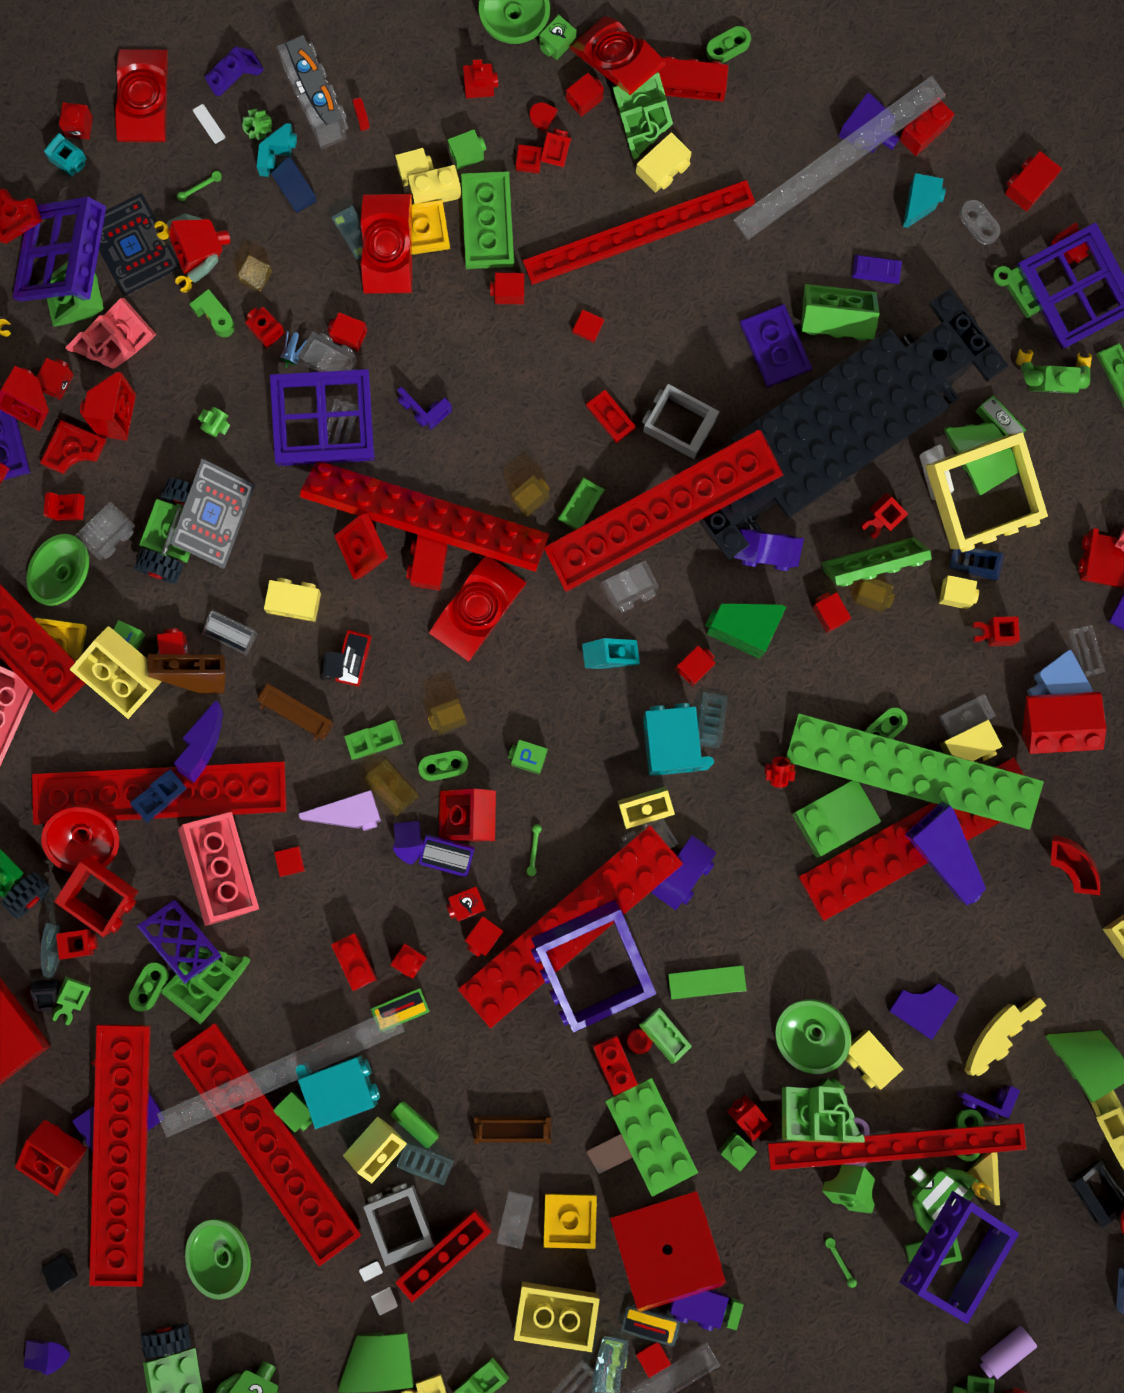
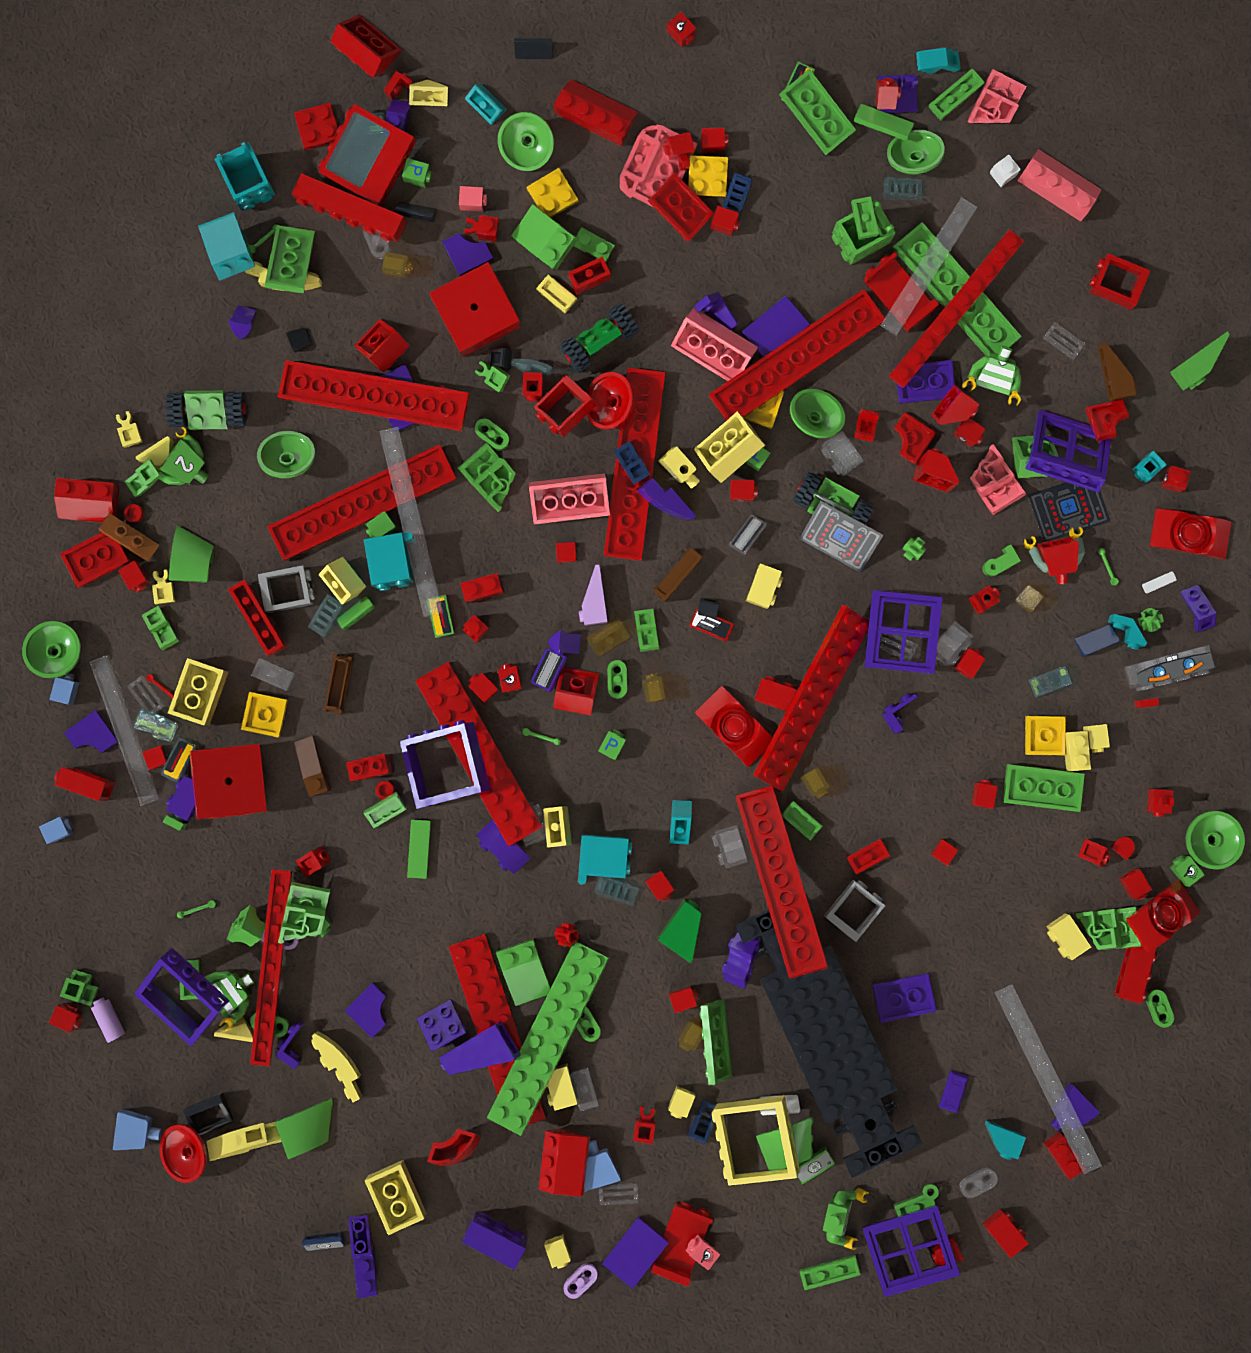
camera: 105 degrees right, 5 degrees up
(147, 741) = (673, 461): none -> light yellow torso
(184, 922) = (535, 468): dark purple window -> none
(189, 672) = (721, 499): reddish brown slope -> none
(289, 355) = (960, 615): flat silver piece -> none
(361, 546) = (796, 645): red plate -> none
(384, 1300) = (234, 569): white sticker -> none
(387, 243) = (1035, 705): red slope -> none
(466, 149) = (1104, 781): bright green brick -> none
(528, 158) = (1089, 830): red tile -> none
(548, 1386) = (150, 678): none -> red hinge
(638, 232) = (1014, 907): red plate -> none
(651, 1137) = (311, 785): bright green plate -> none
(737, 1151) = (290, 847): bright green brick -> none
(806, 1048) = (359, 912): bright green dish -> none
(839, 312) = (922, 1054): bright green slope -> none
(872, 1060) = (337, 962): light yellow brick -> none
(886, 513) = (753, 1057): red brick -> none
(925, 910) = (441, 1025): none -> dark purple hinge

